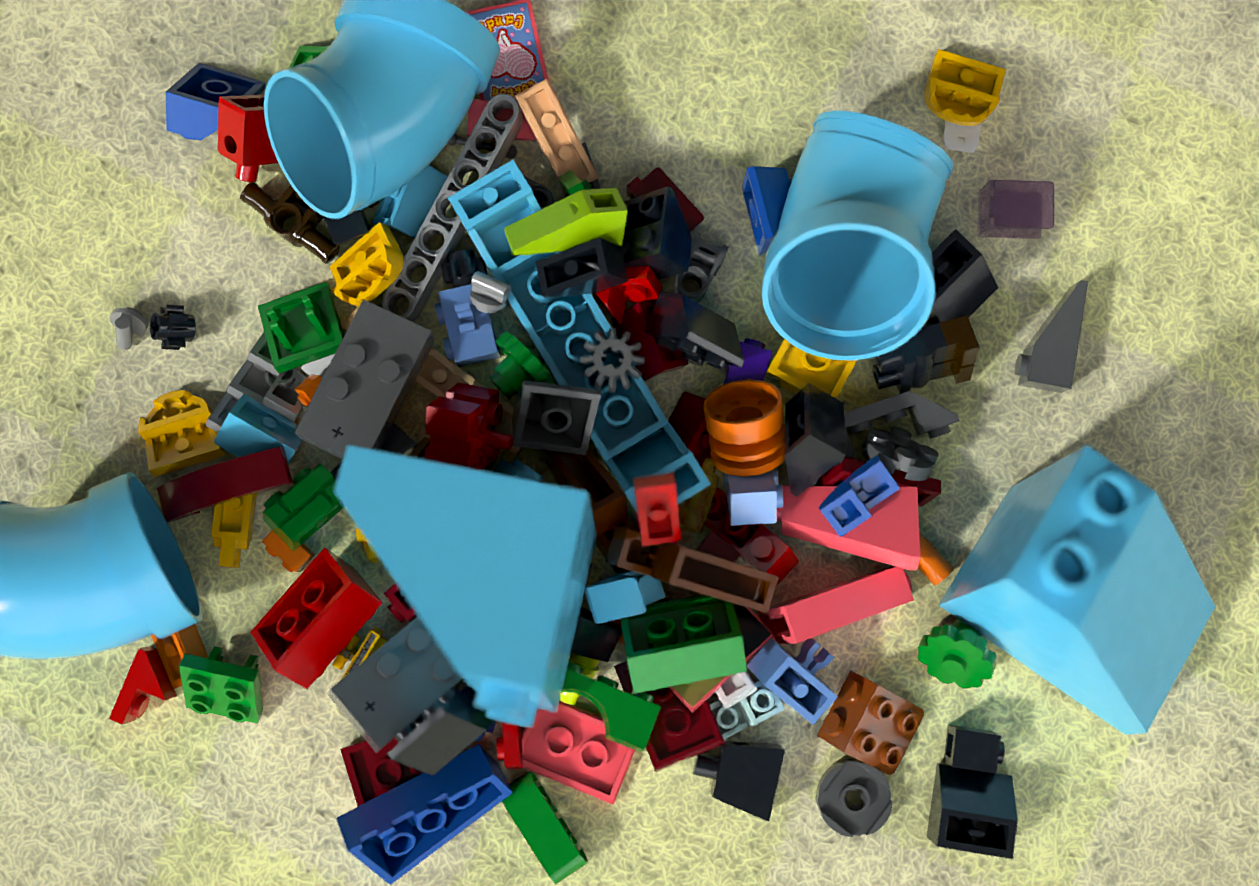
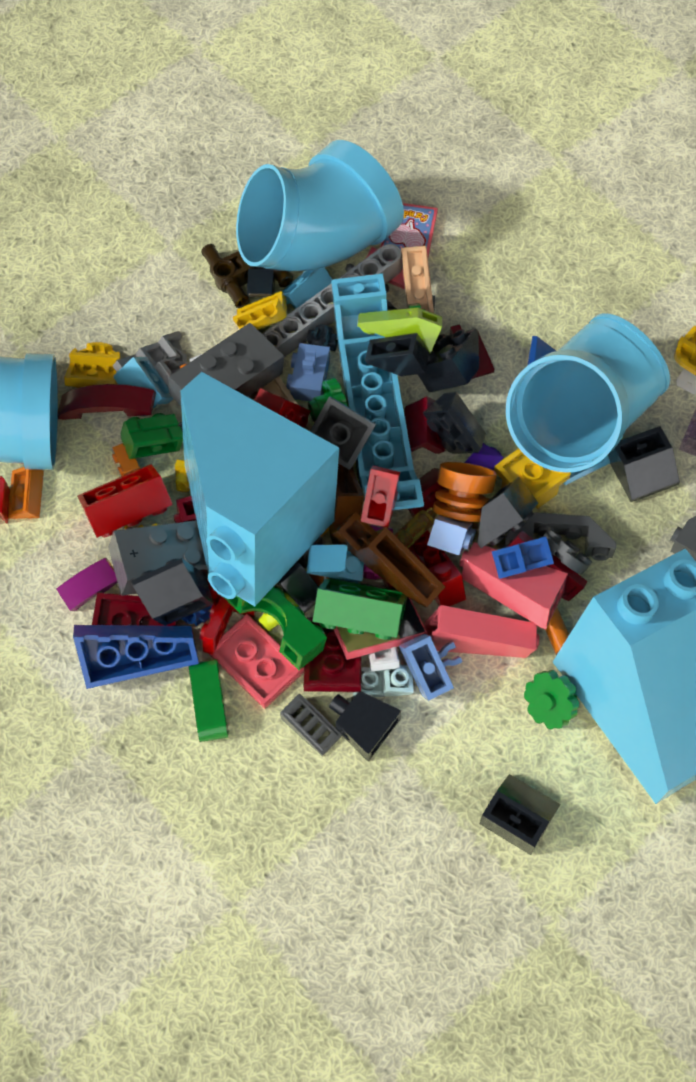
camera: 25 degrees right, 20 degrees down
(126, 323) = (94, 295): light grey plate -> none
(172, 327) = (122, 305): black gear -> none
(195, 99) = (206, 193): blue slope -> none
(222, 686) = (41, 521): green plate -> none
(233, 528) = (99, 432): yellow hinge -> none
(244, 134) = (222, 213): red torso -> none
(301, 327) = (200, 332): green plate -> none
(321, 742) = (87, 583): none -> magenta slope
(488, 293) = (331, 350): light grey plate -> none
(609, 372) = (402, 414): dark grey gear -> none
(641, 286) = (422, 385): red slope -> none
(647, 802) = (303, 732): none -> dark grey slope
(703, 266) = (480, 393): dark grey piece -> none
(857, 819) = (442, 757): dark grey plate -> none
(871, 723) = (473, 727): dark orange bracket -> none
(930, 354) = (609, 498): black hips -> none
(973, 749) = (539, 771): black brick -> none

